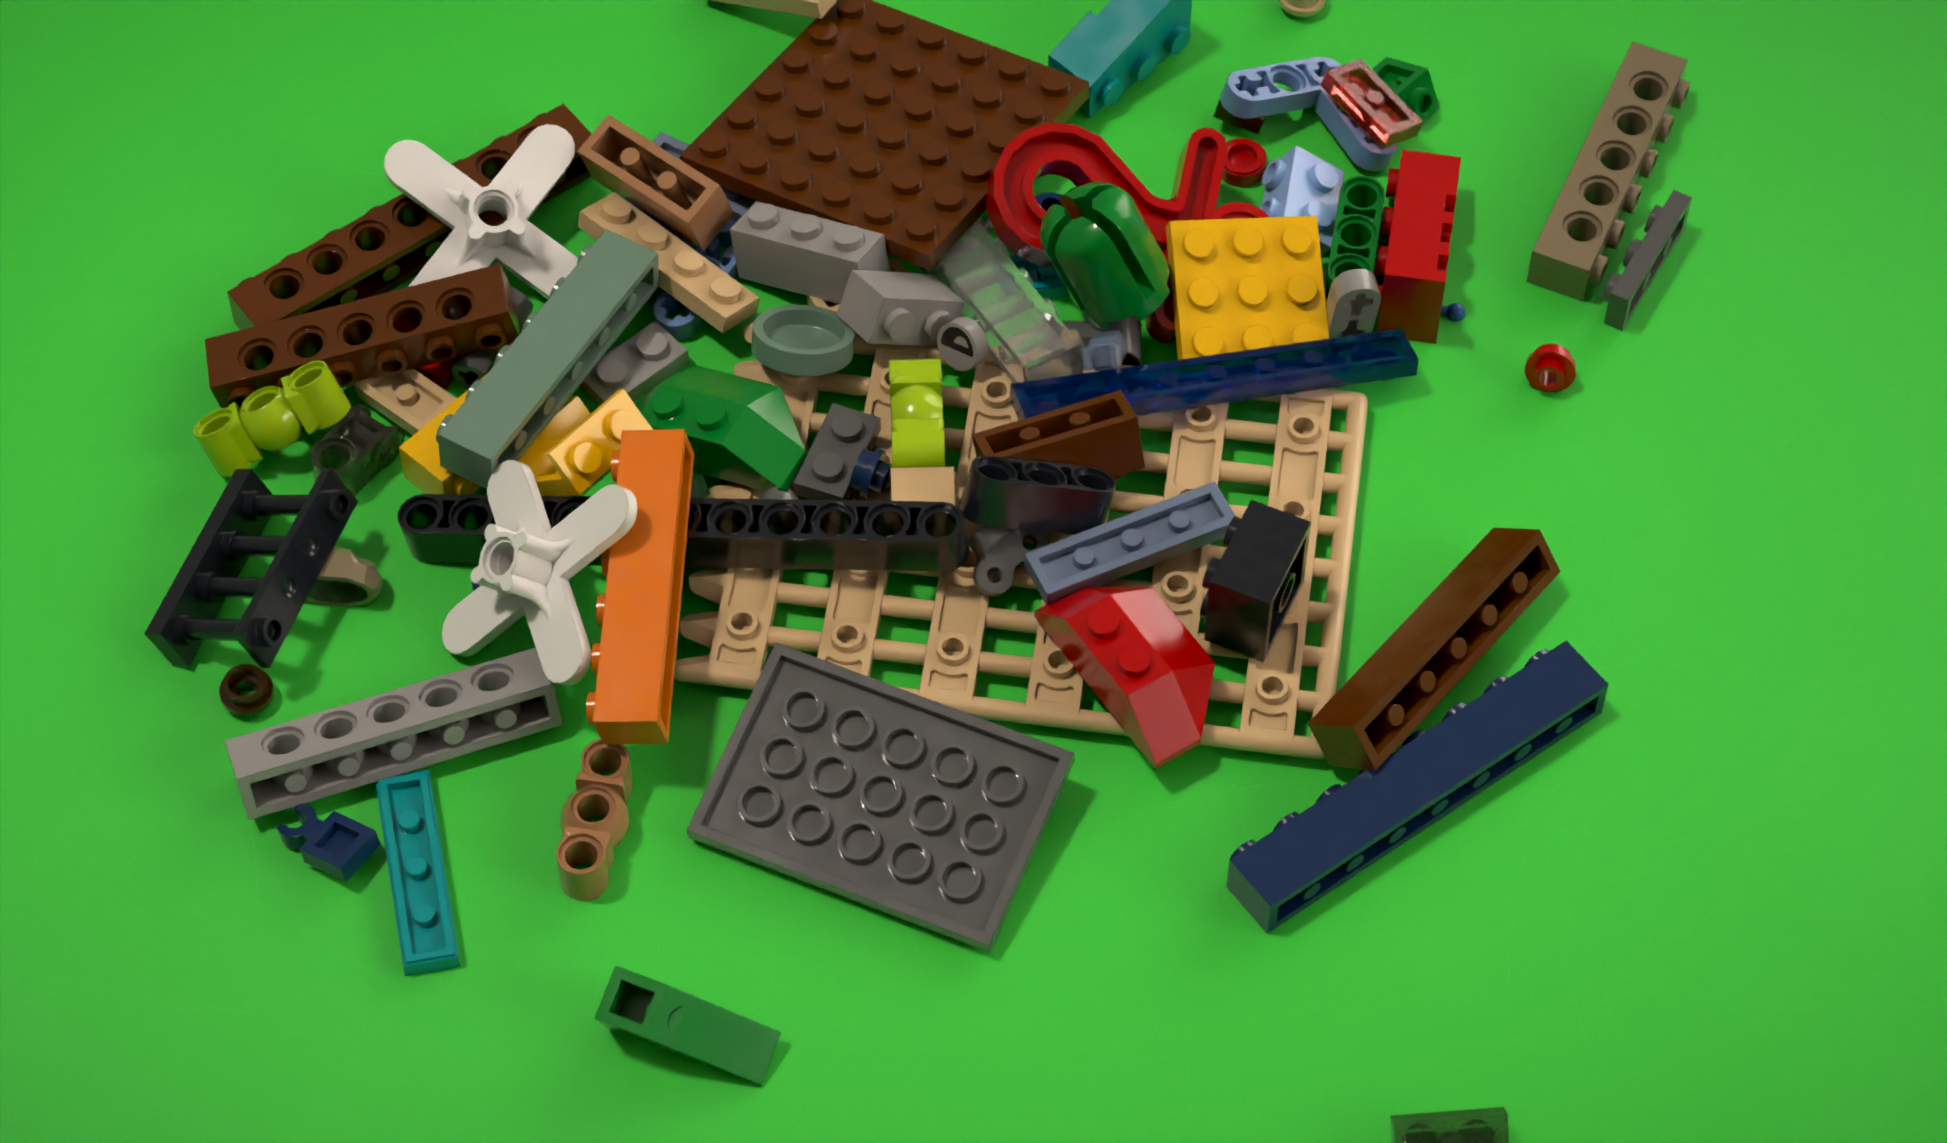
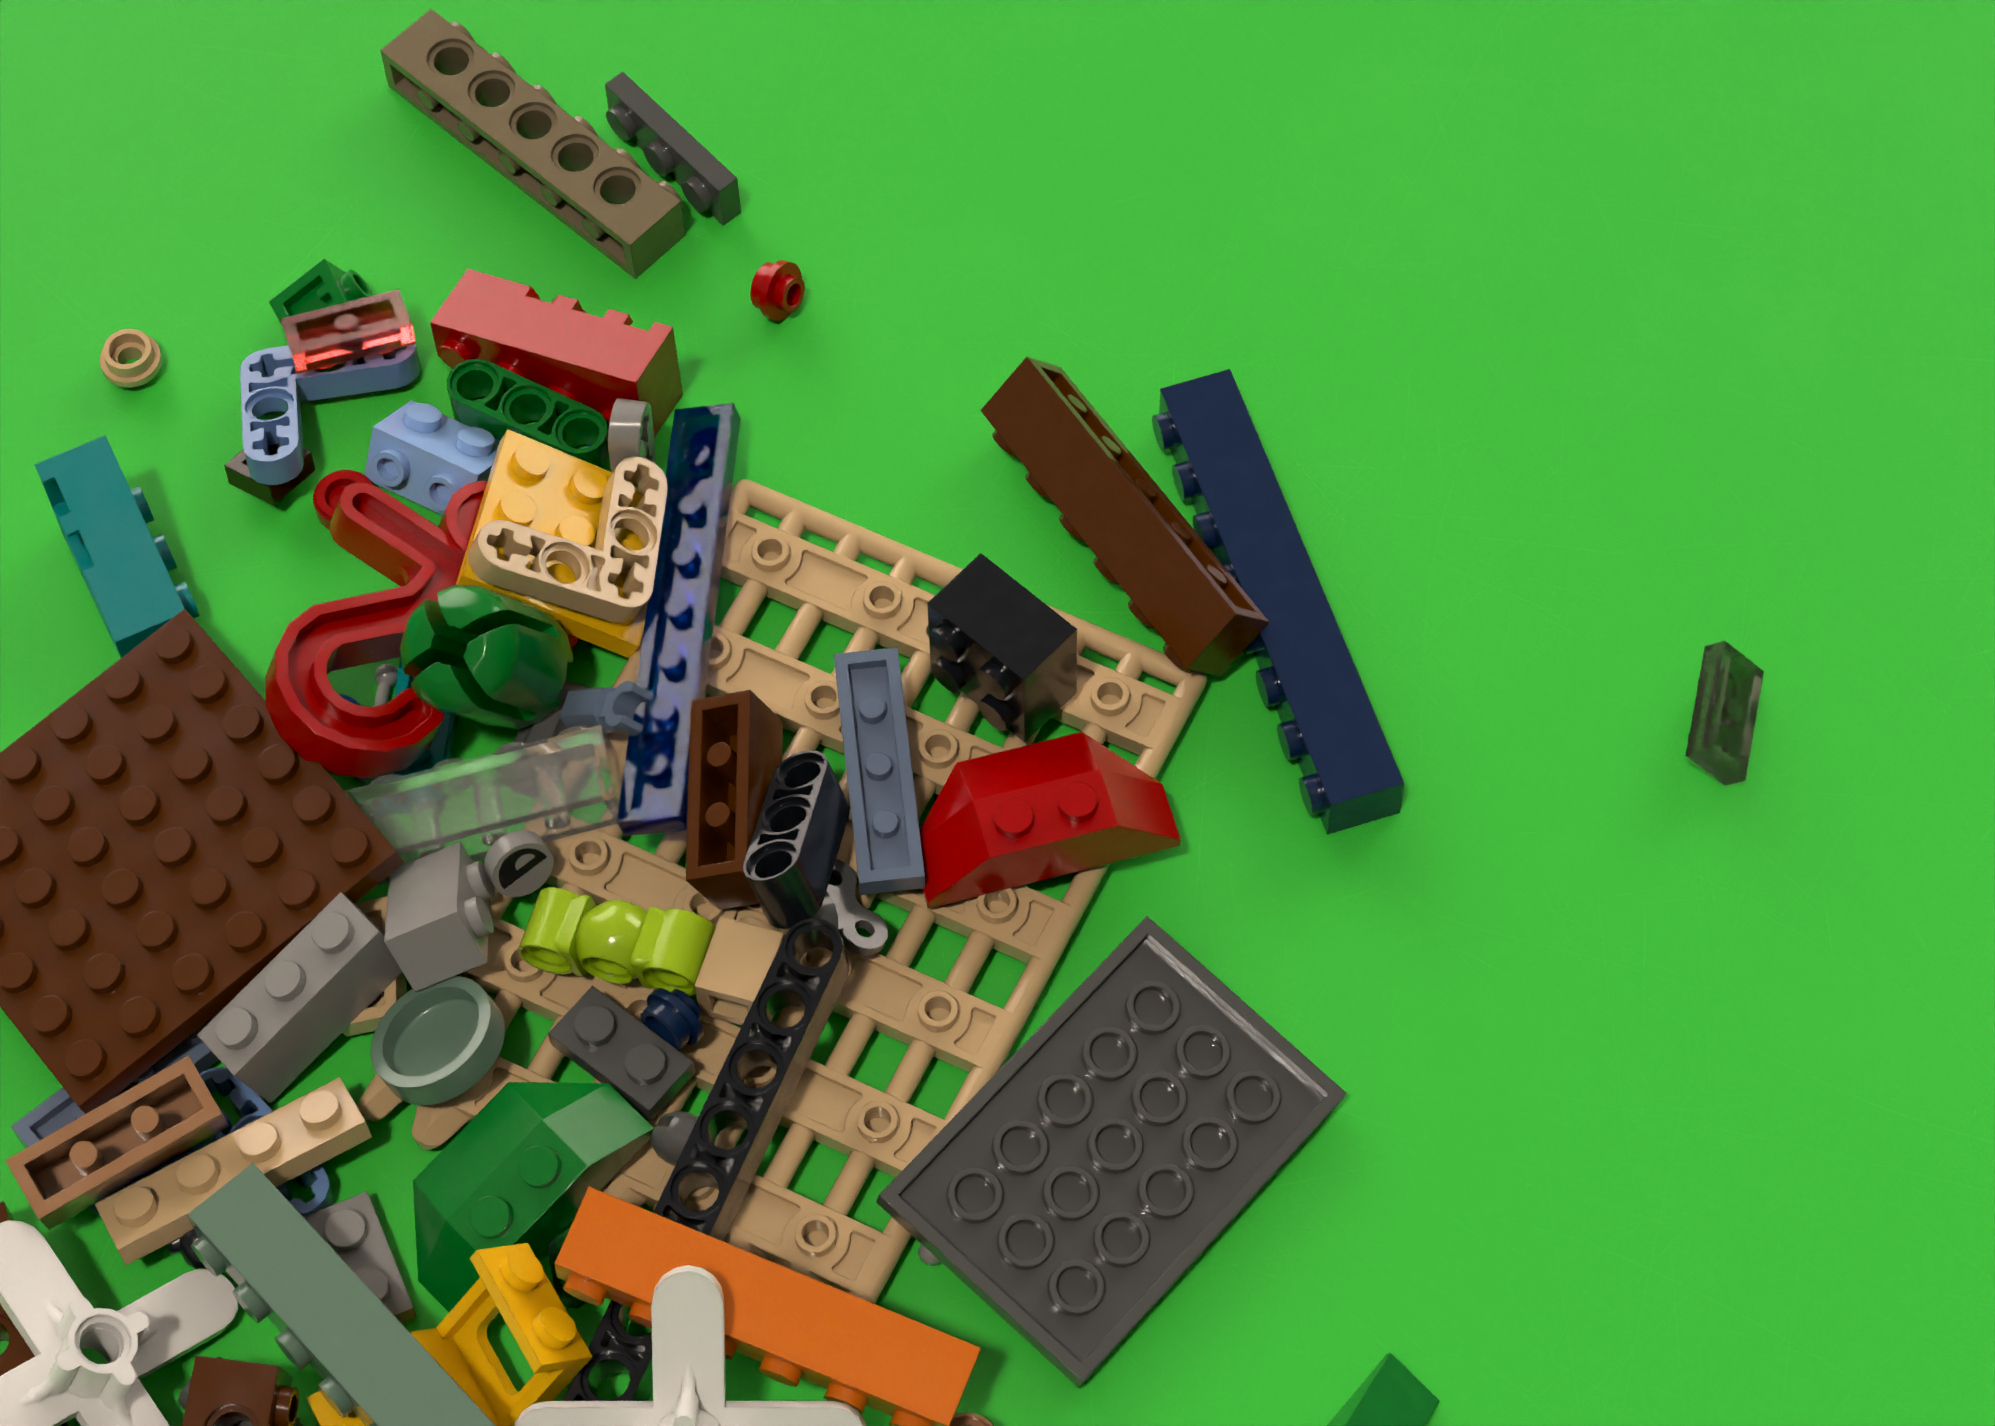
camera: 70 degrees left, 5 degrees up
(1220, 306) = (593, 567): none -> tan beam

